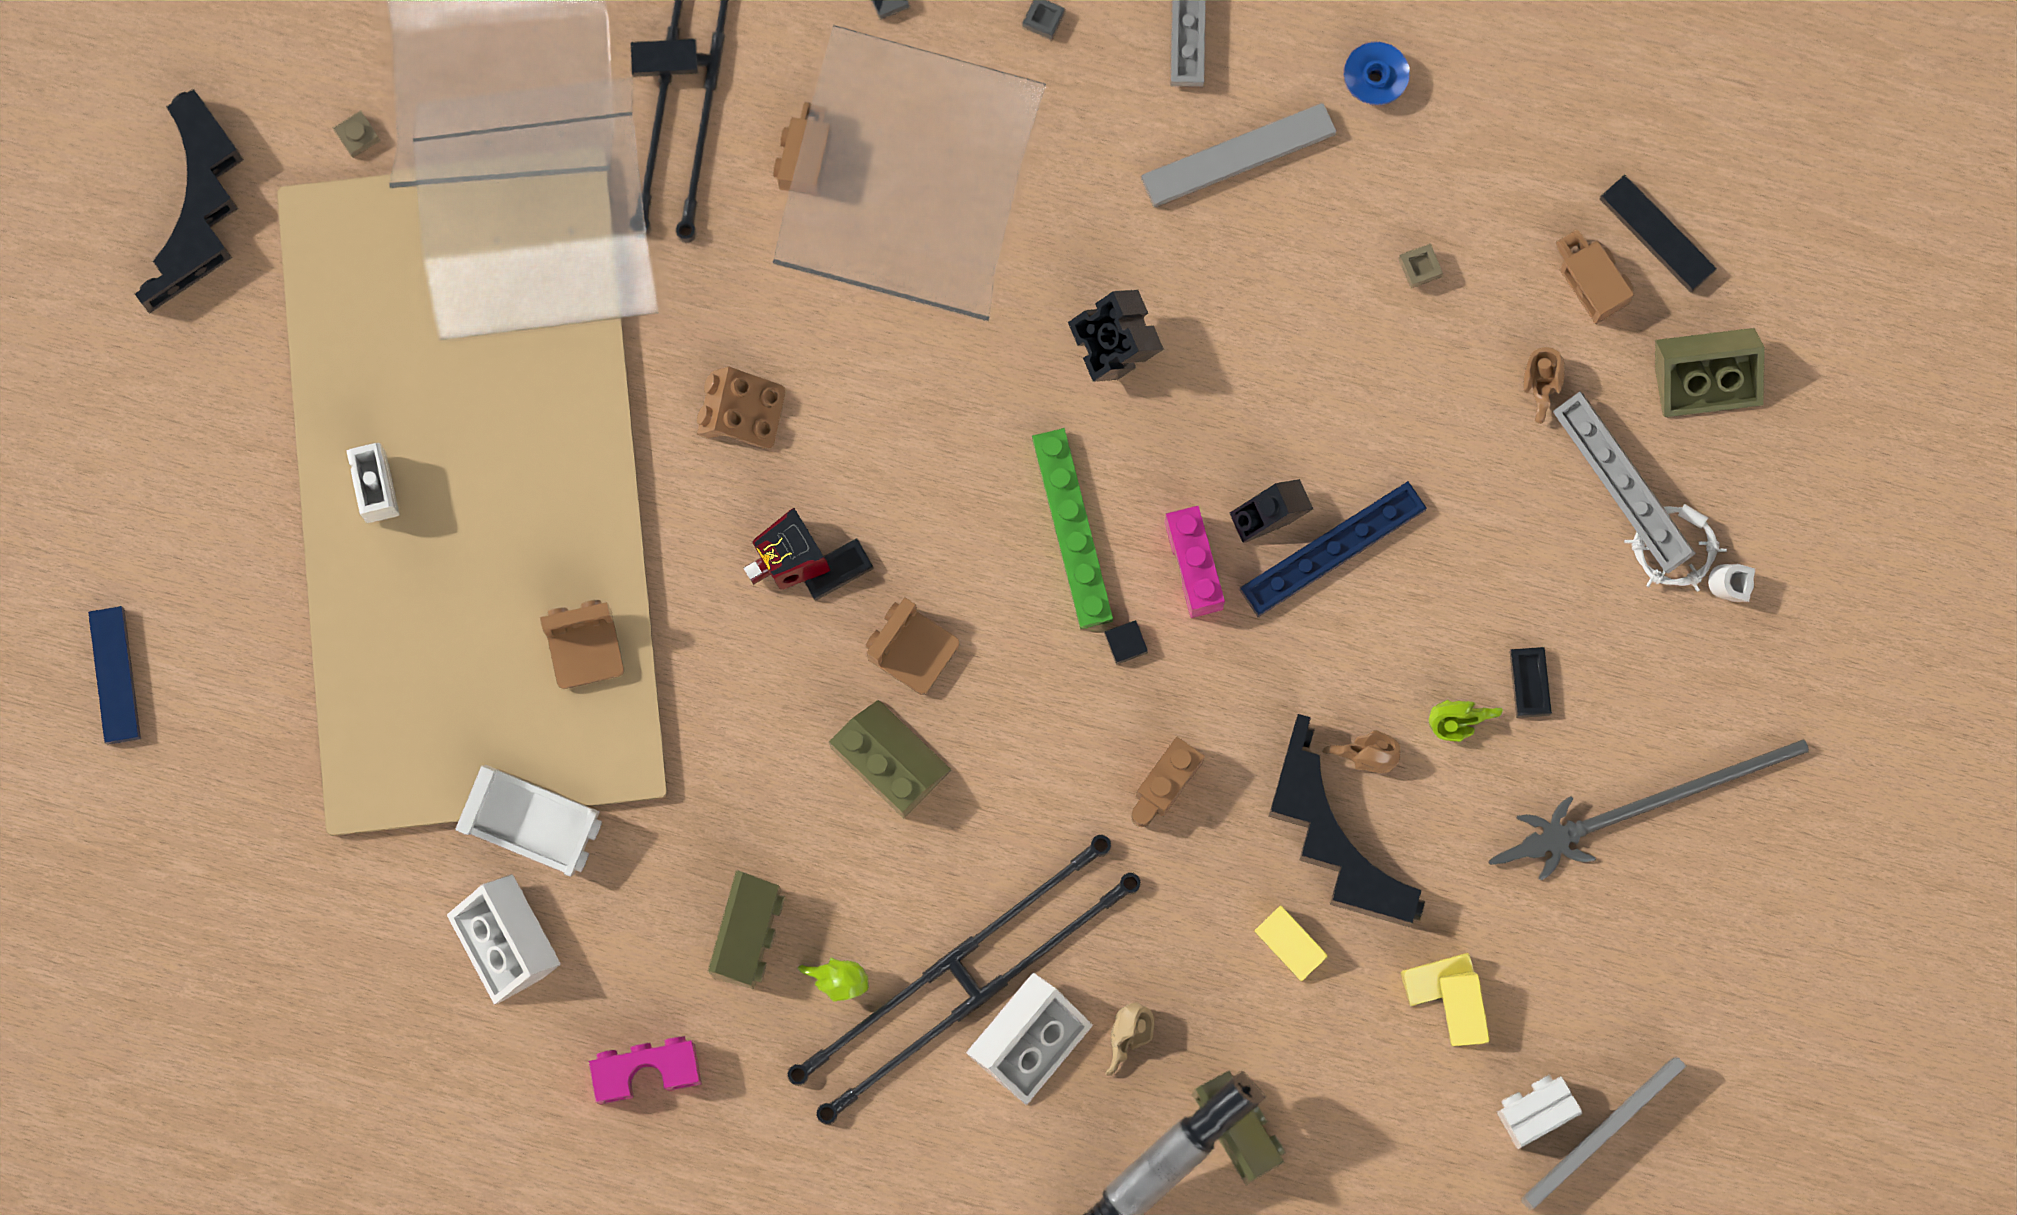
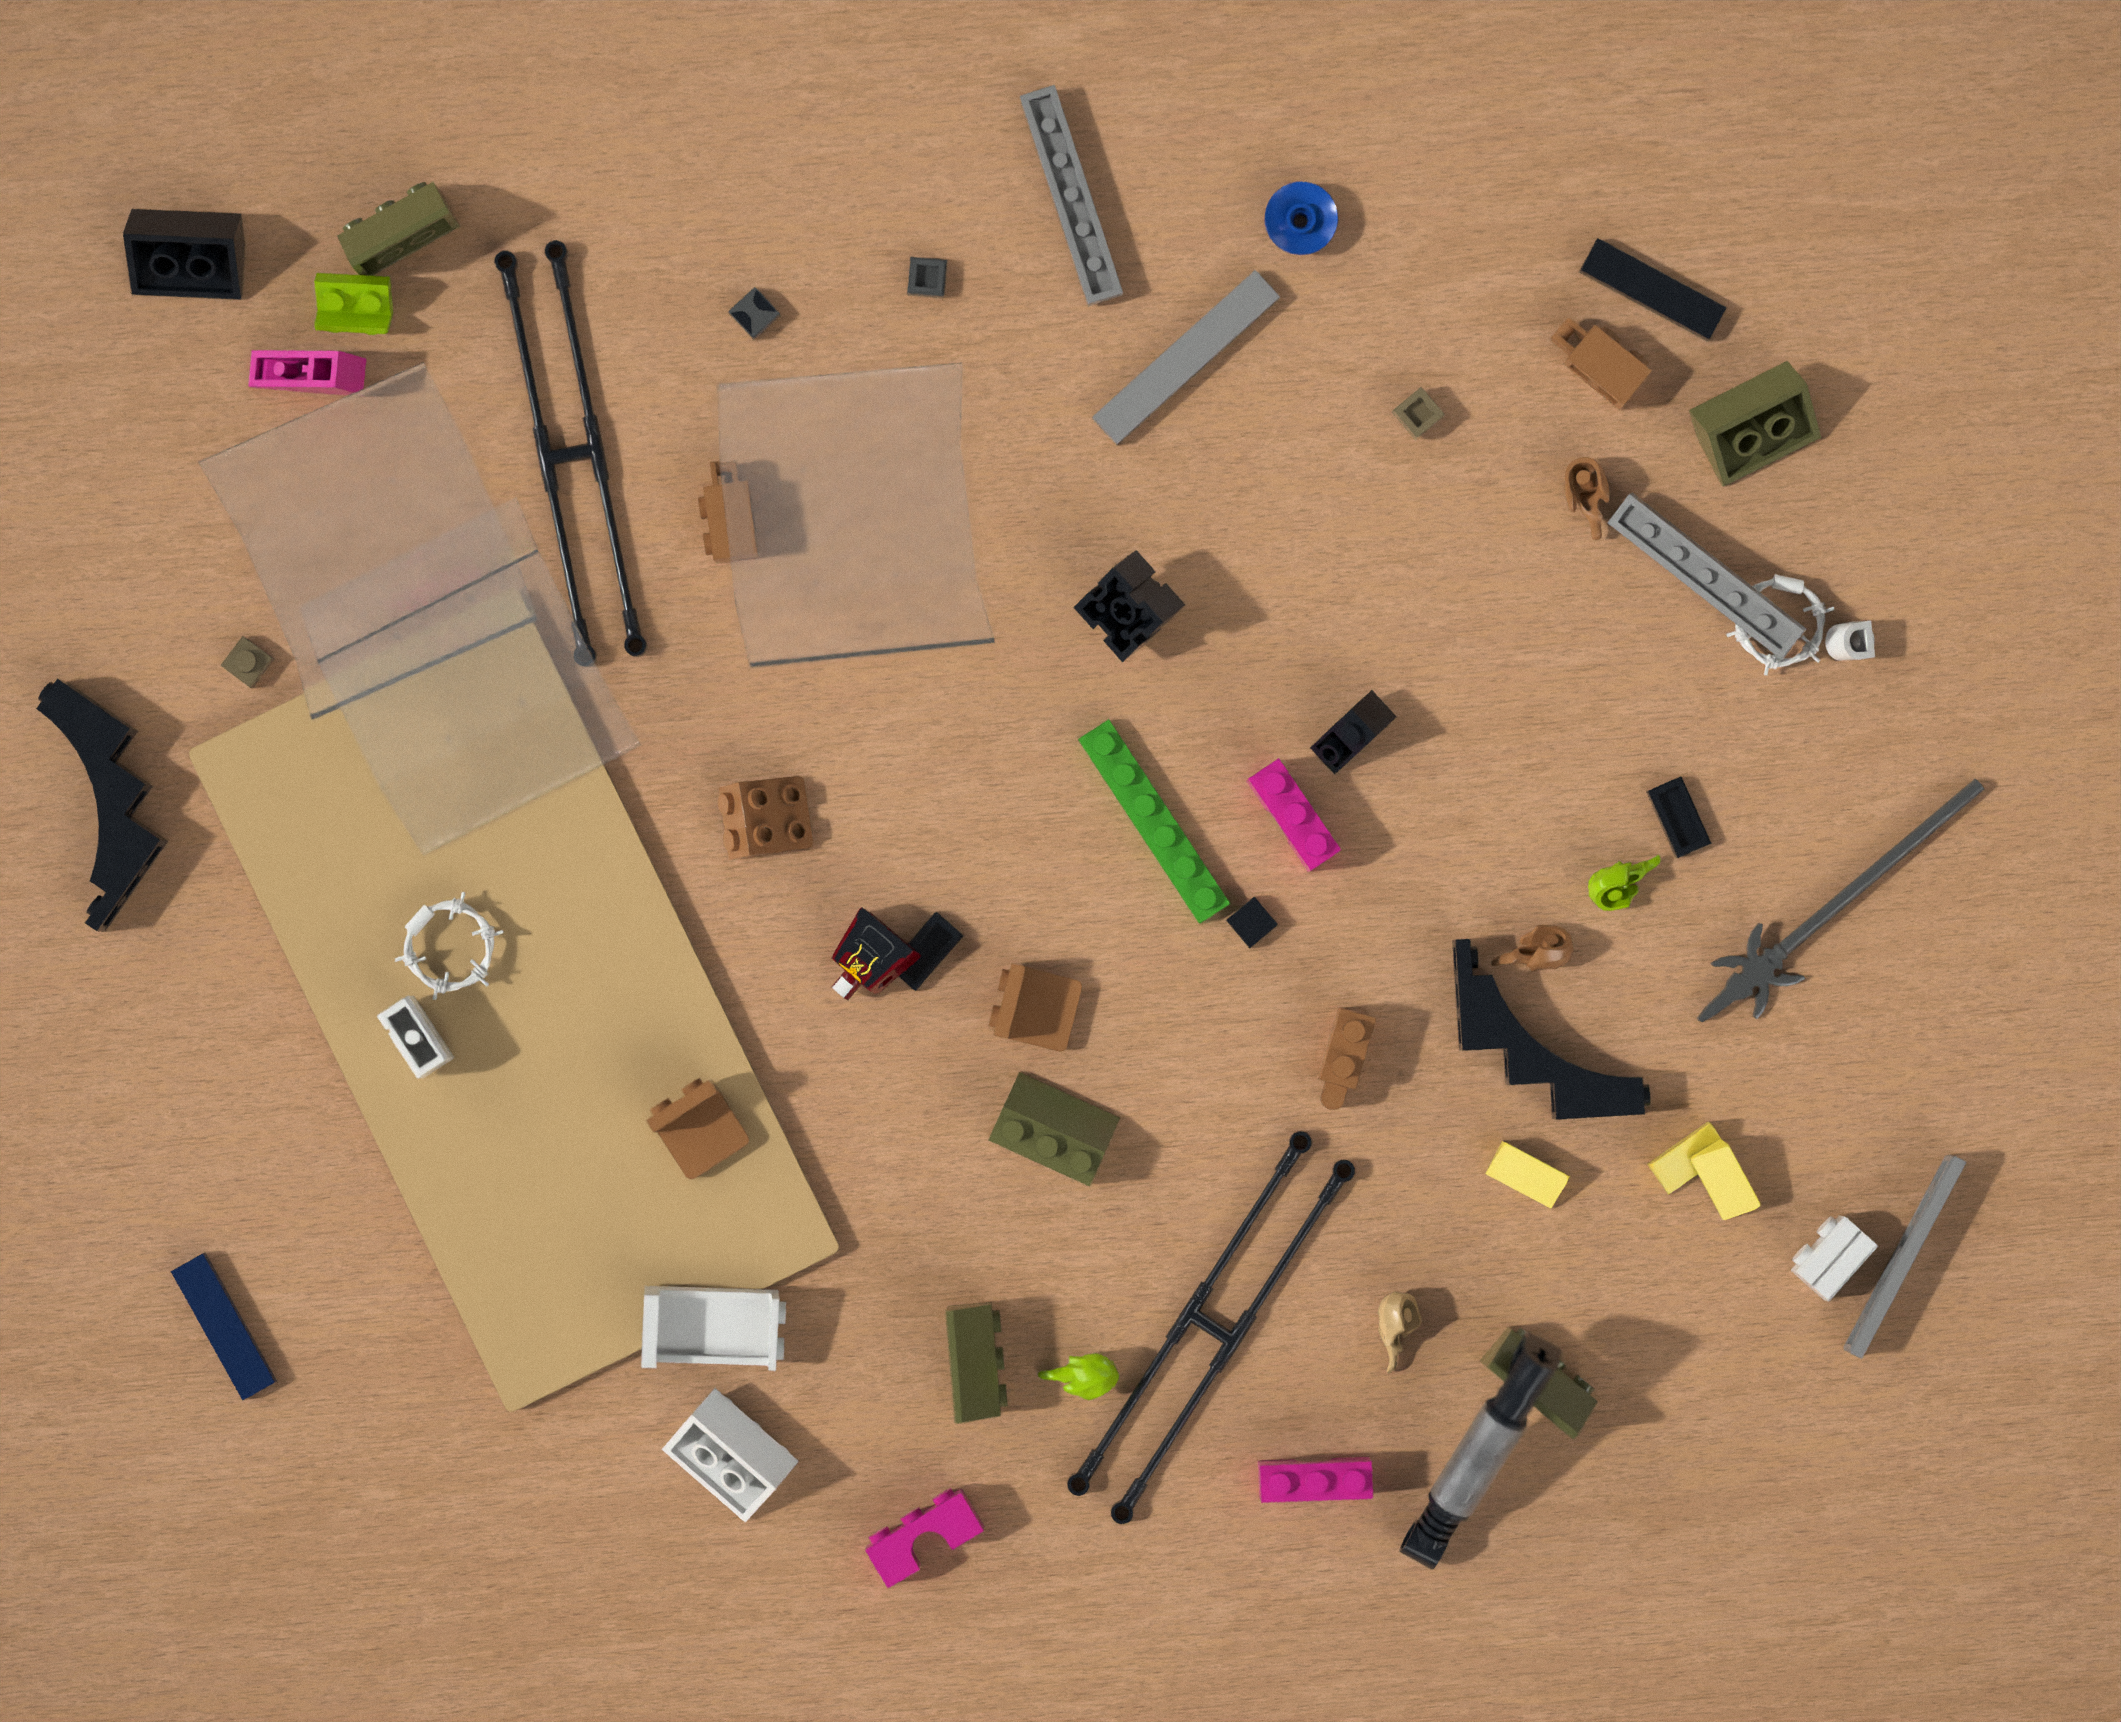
camera: 20 degrees left, 10 degrees up
(416, 390) = (417, 923): none -> white piece
(664, 57) = (542, 466): black tile -> none
(1007, 1143) = (1315, 1481): none -> dark pink arch
(1029, 1038) = (1298, 1366): white slope -> none
(1333, 549) = (1430, 748): dark blue tile -> none

